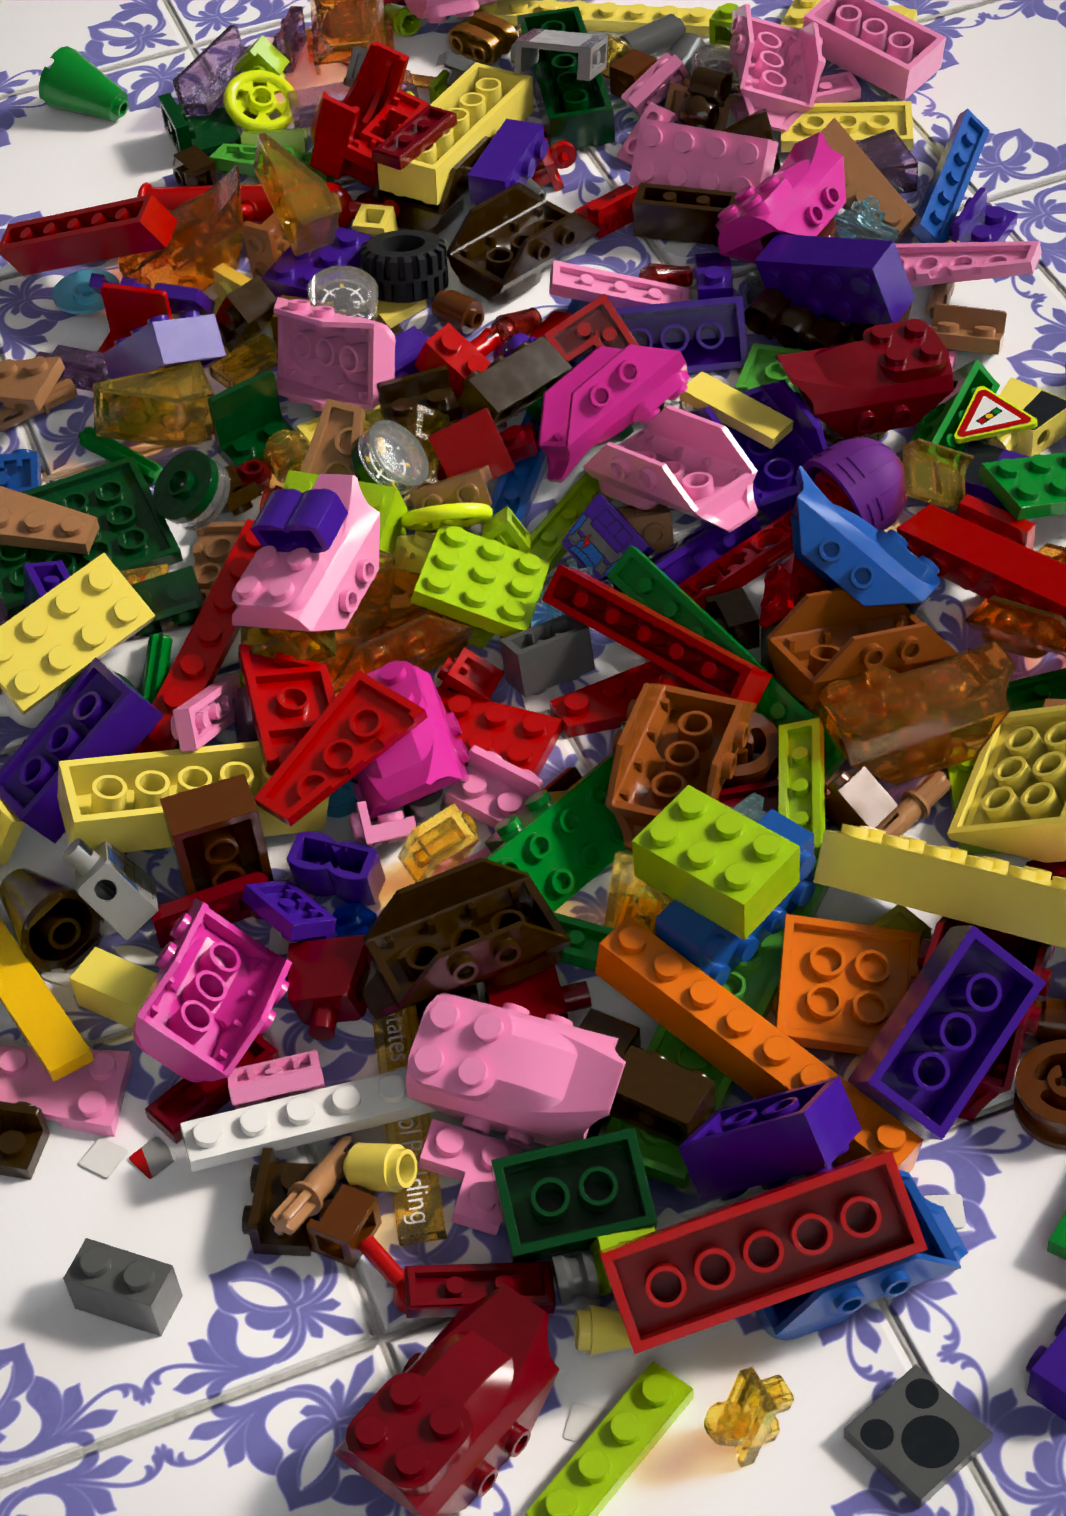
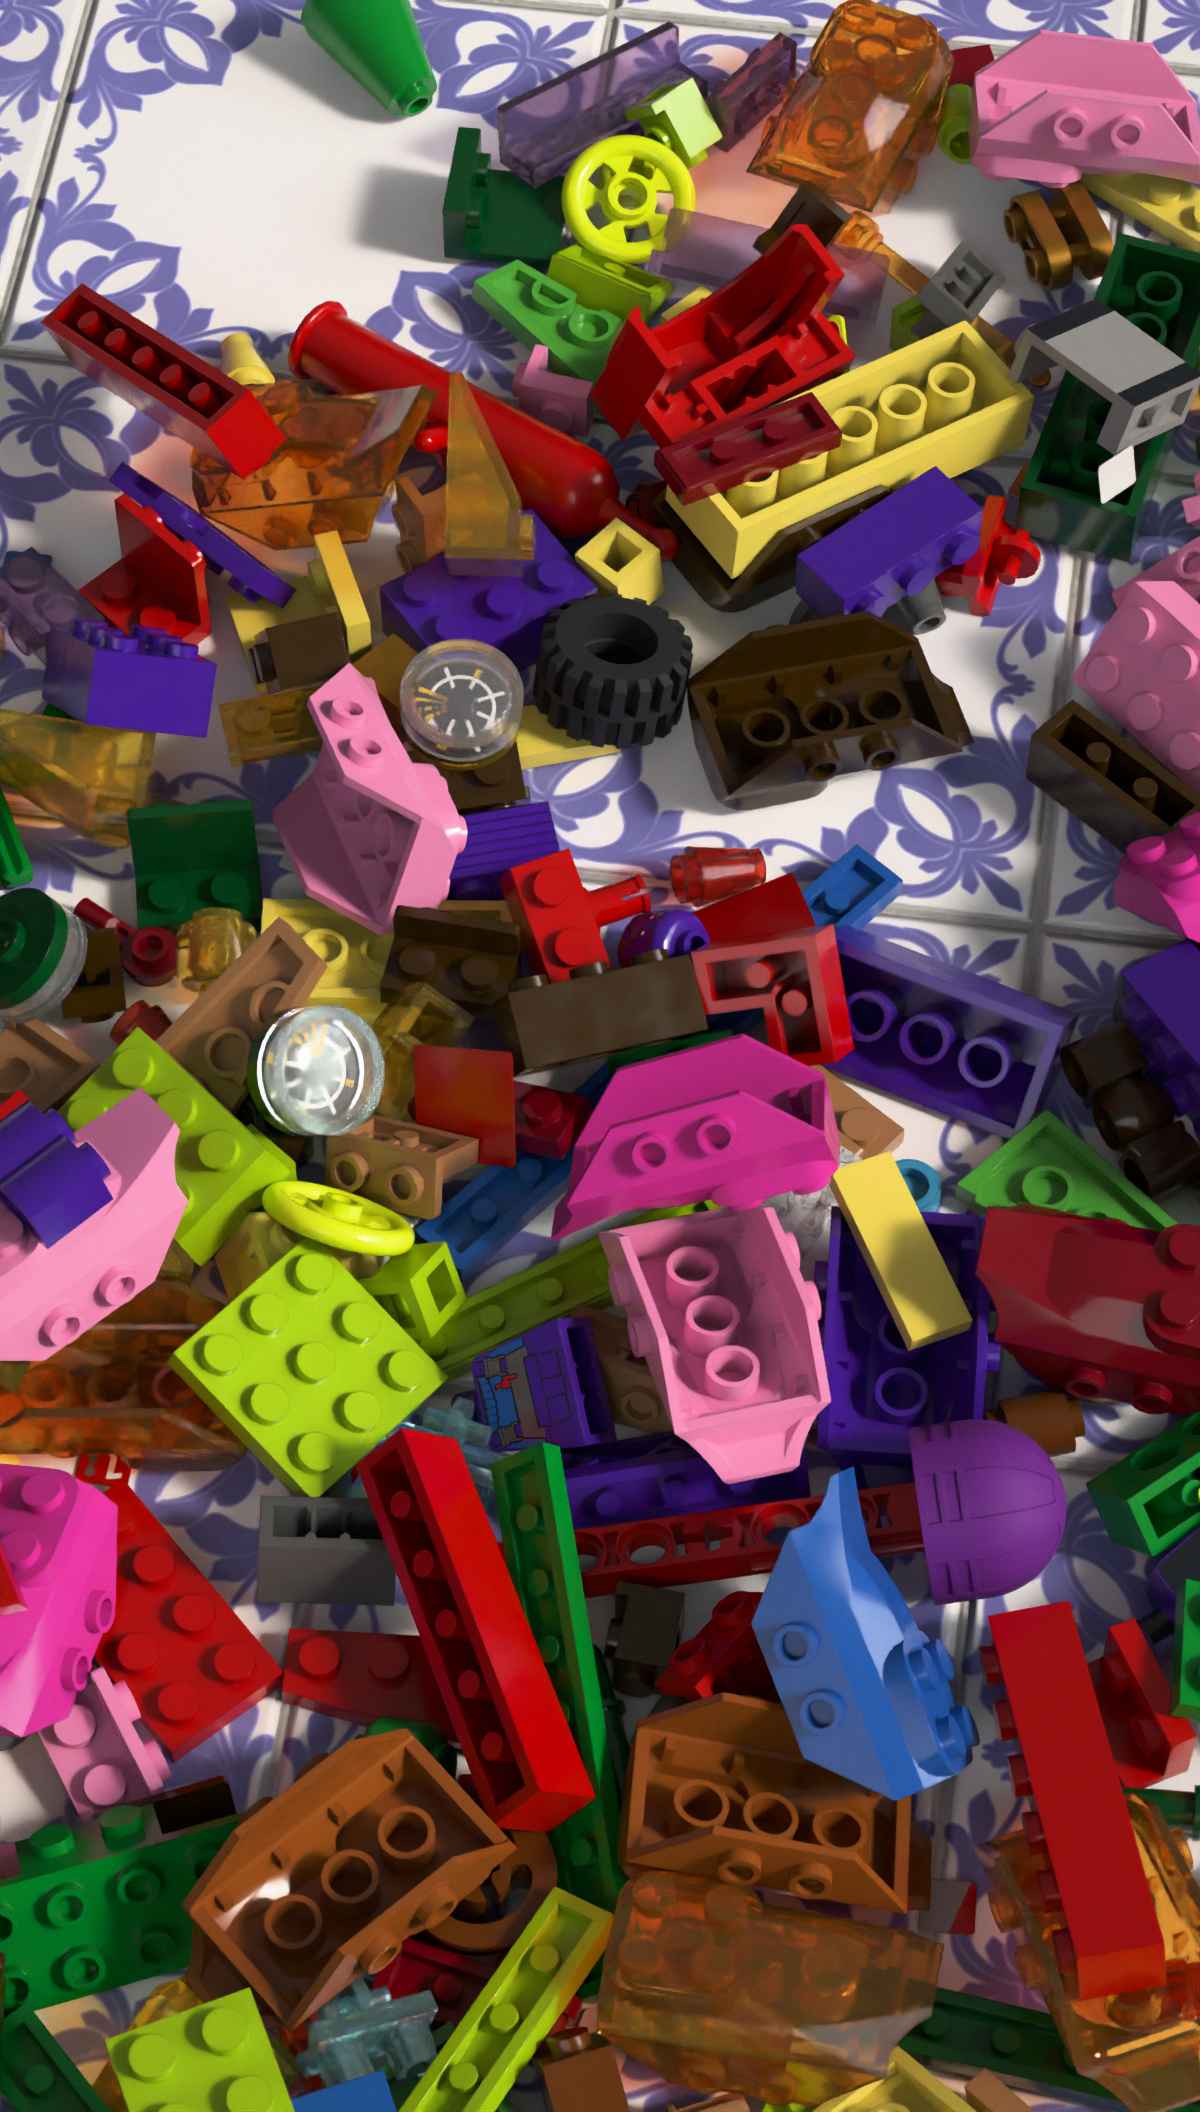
camera: 25 degrees right, 10 degrees up
(74, 294) = (137, 443): medium azure dish -> none
(194, 168) = (438, 300): dark brown brick -> none
(458, 310) = (647, 796): reddish brown brick -> none
(470, 675) = (204, 1520): red bracket -> none
(539, 702) = (282, 1616): white sticker -> none
(594, 91) = (1116, 474): none -> white sticker
(610, 210) = (1012, 706): red bracket -> none
(621, 290) = (901, 894): bright pink plate -> none
(668, 274) = (1005, 898): clear red cone -> none
(678, 247) = (1081, 837): white sticker -> none
(713, 276) = (1075, 944): dark purple slope -> none
(935, 473) = (1128, 1573): clear yellow piece -> none

